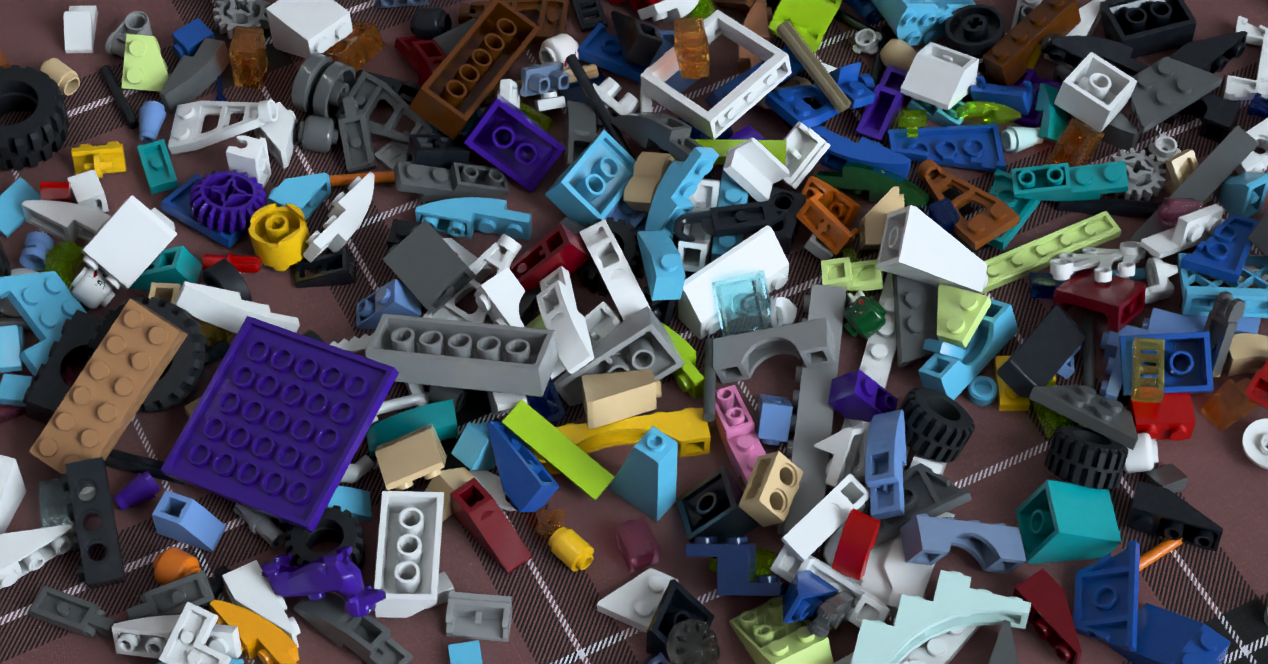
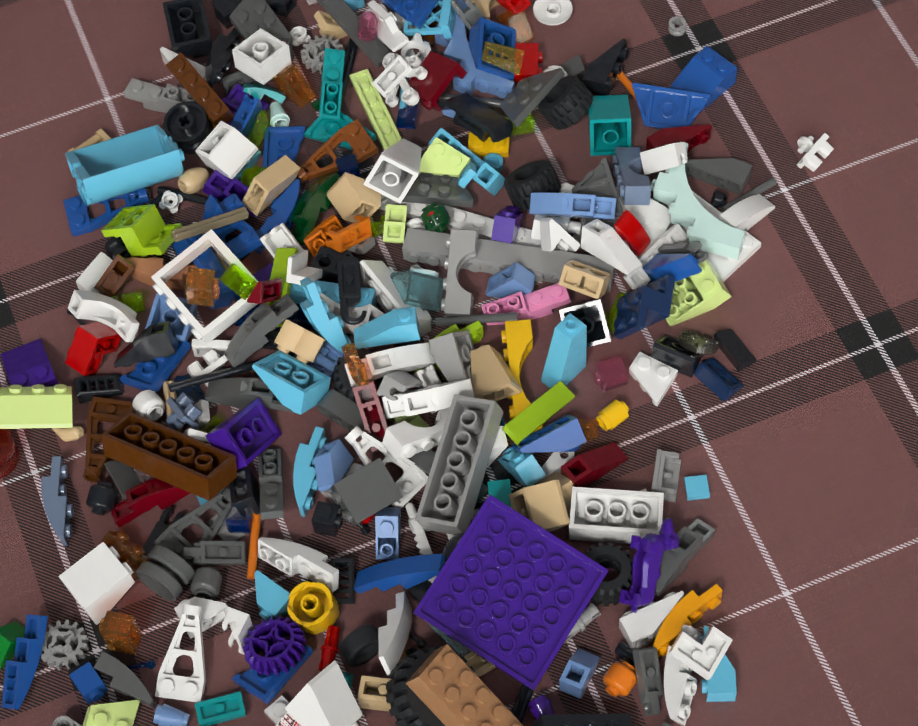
camera: 80 degrees left, 5 degrees up
(321, 311) = (402, 571): none -> blue slope
(396, 151) = (239, 524): none -> clear blue slope
(473, 234) = (331, 464): none -> medium blue slope
(577, 277) = (396, 383): none -> light grey hinge
(602, 220) = (354, 364): none -> clear orange tile
(701, 123) = (266, 291): none -> dark red slope
(710, 92) = (238, 281): none -> clear neon green bracket
(890, 126) = (270, 184): none -> tan slope
(998, 577) = (663, 157): none -> white hinge
(1101, 249) = (392, 76): none -> white slope

